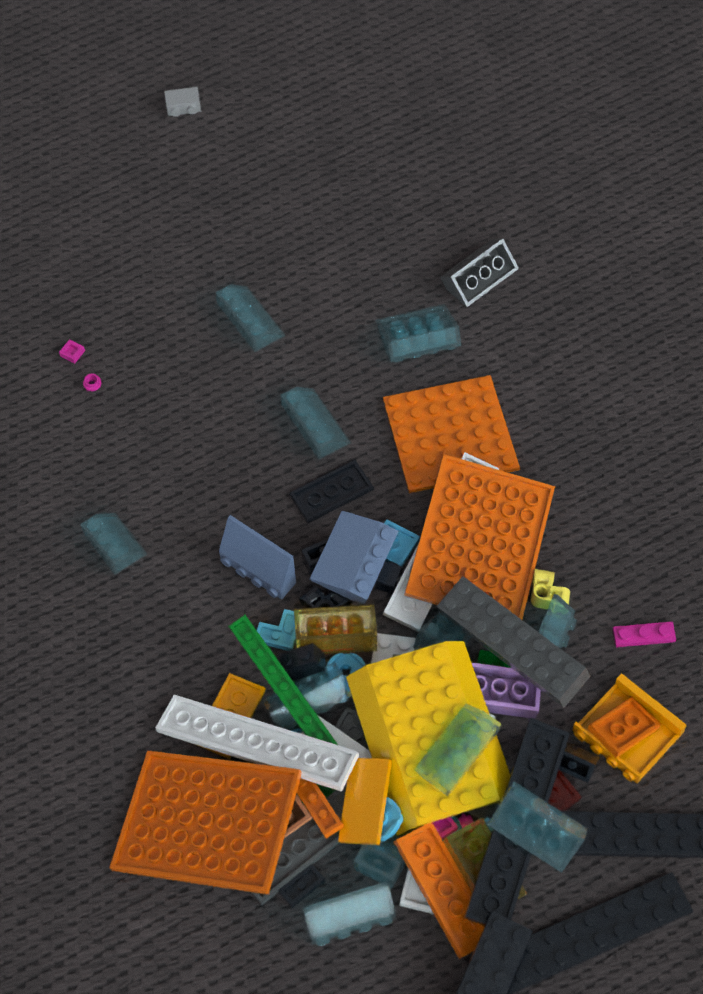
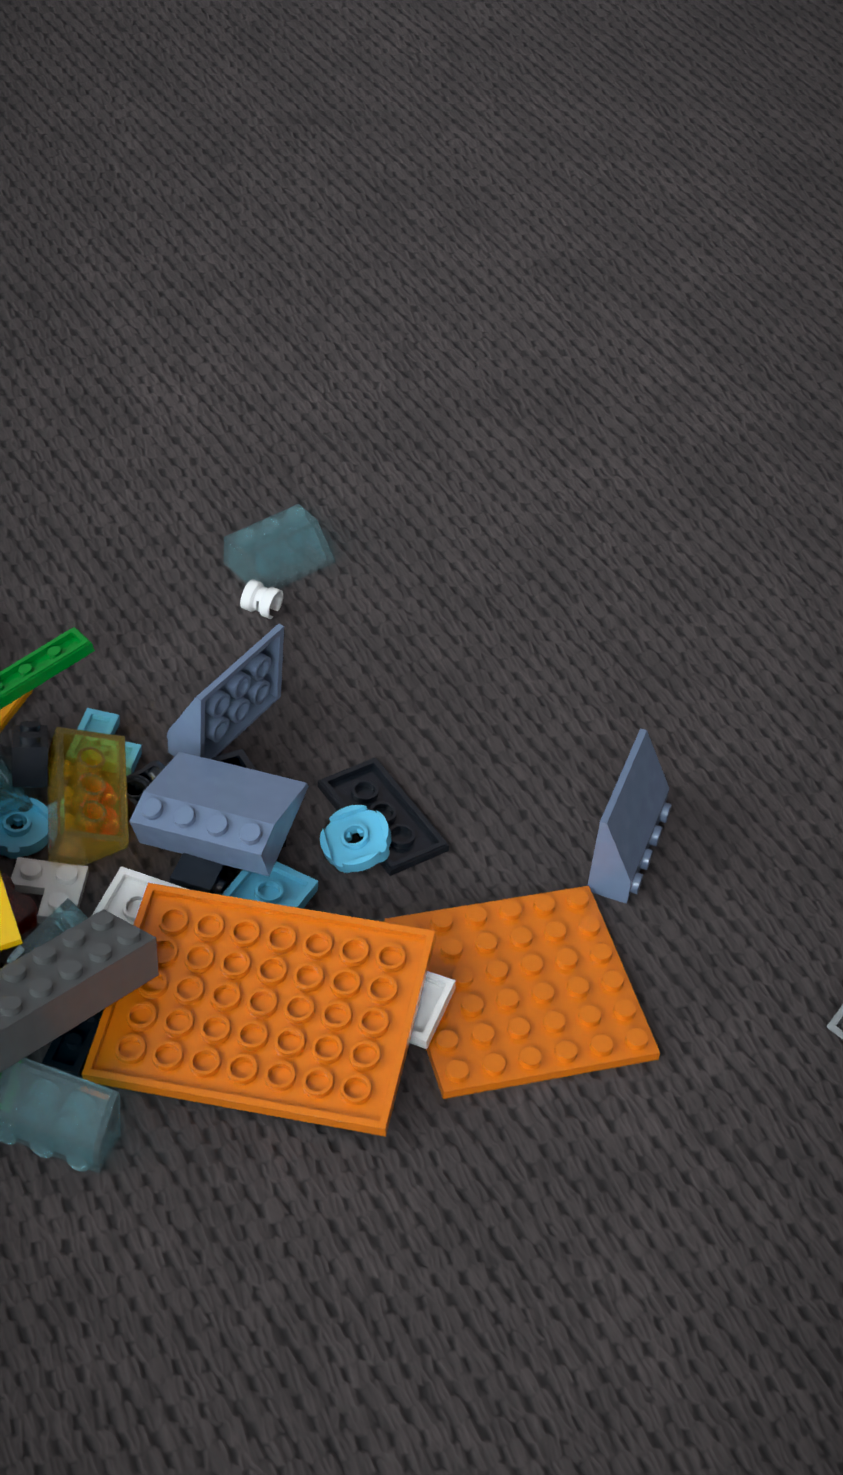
camera: 80 degrees right, 15 degrees down
(72, 351) = (633, 504): dark pink plate -> none
(92, 378) = (578, 527): dark pink plate -> none
(156, 550) = (260, 598): none -> white wheel
(248, 316) = (738, 704): clear light blue slope -> none
(314, 421) = (524, 787): clear light blue slope -> none
(350, 372) = (630, 824): none -> sand blue slope
(362, 492) = (360, 855): none -> medium azure plate
(419, 333) = (742, 939): clear light blue slope -> none
(543, 585) = (172, 1114): light yellow piece -> none
(644, 634) = (50, 1292): dark pink plate -> none

